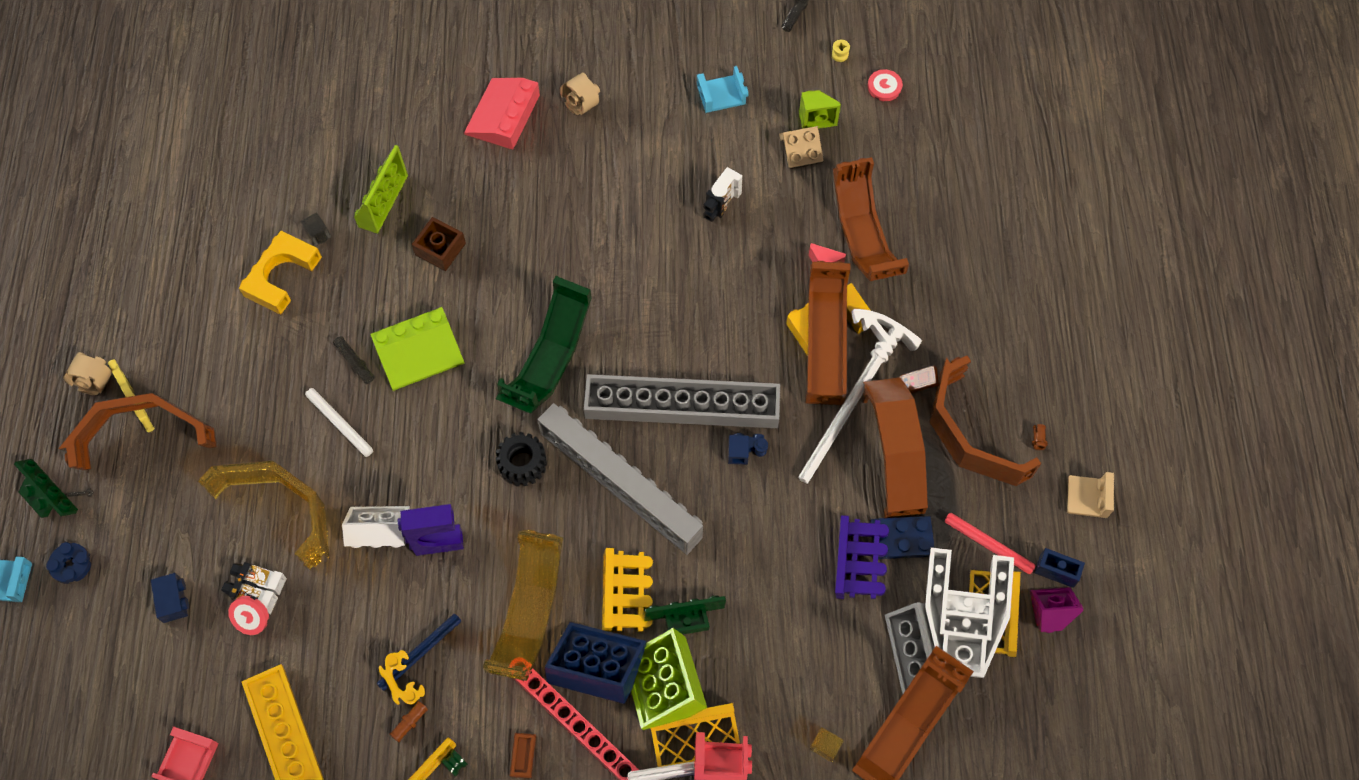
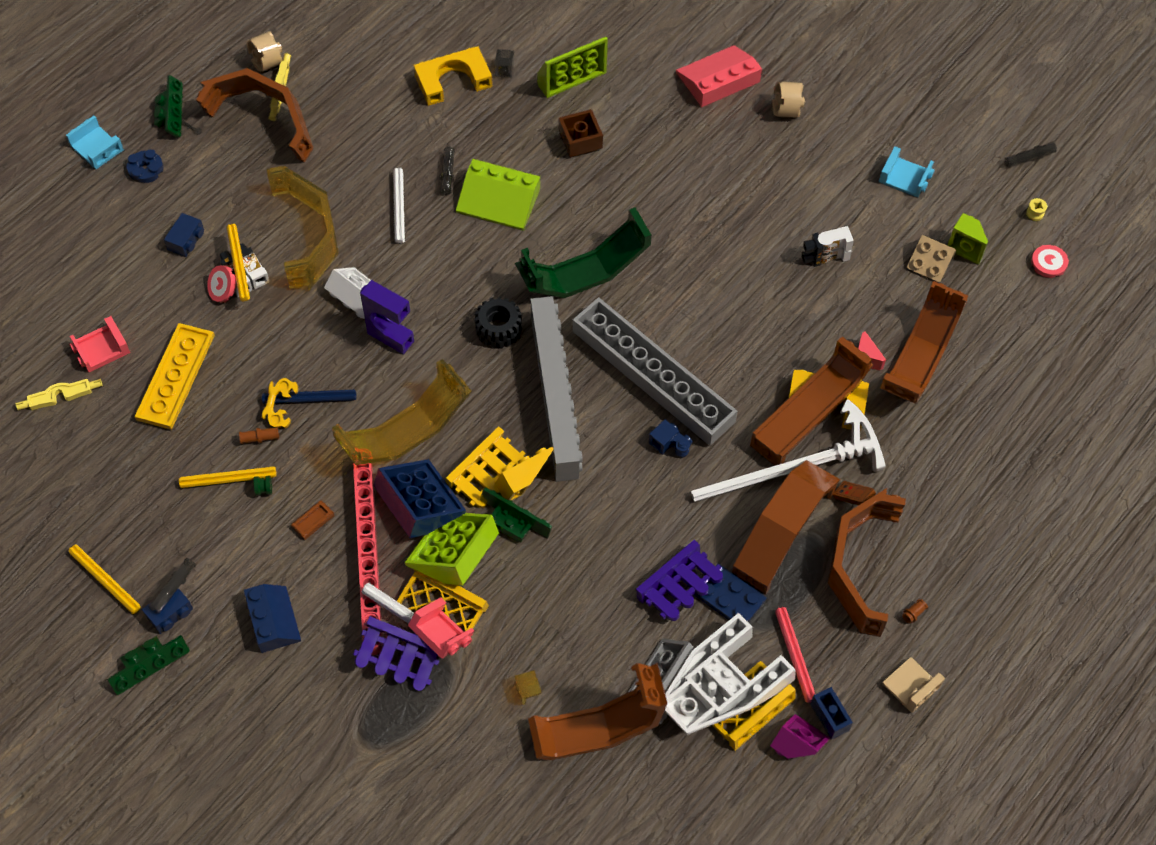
camera: 40 degrees right, 5 degrees down
(249, 585) = (238, 262): none -> yellow axle
(665, 572) = (517, 479): none -> yellow slope

